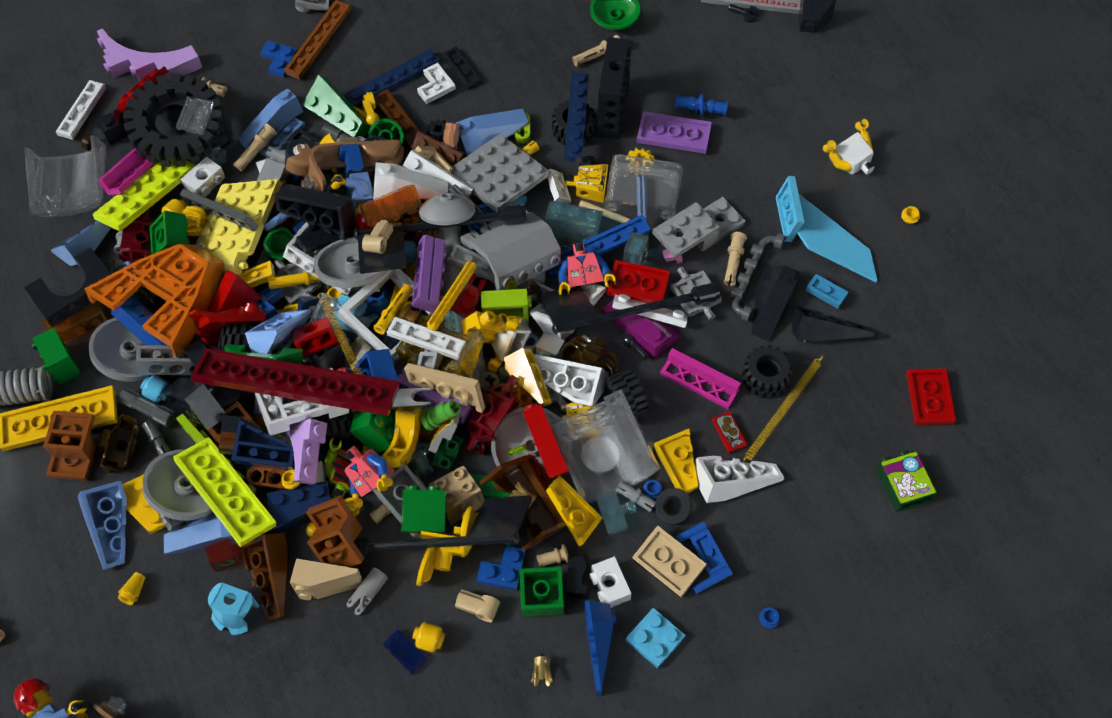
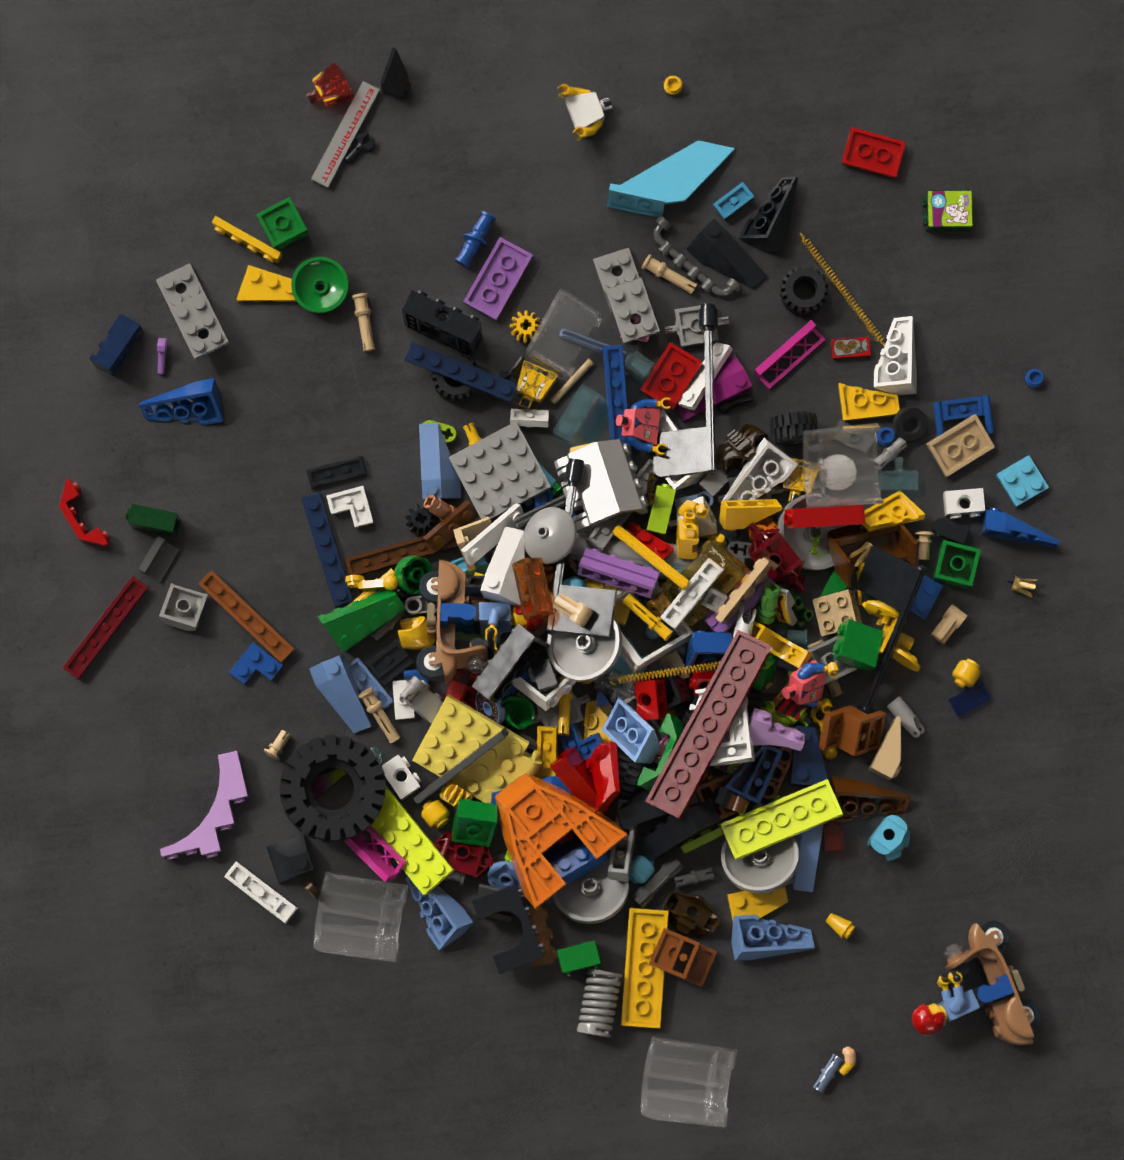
camera: 75 degrees left, 20 degrees up
(152, 75) = (265, 818): red plate -> none
(195, 115) = (347, 762): clear plate -> none
(288, 480) = (788, 757): yellow plate -> none

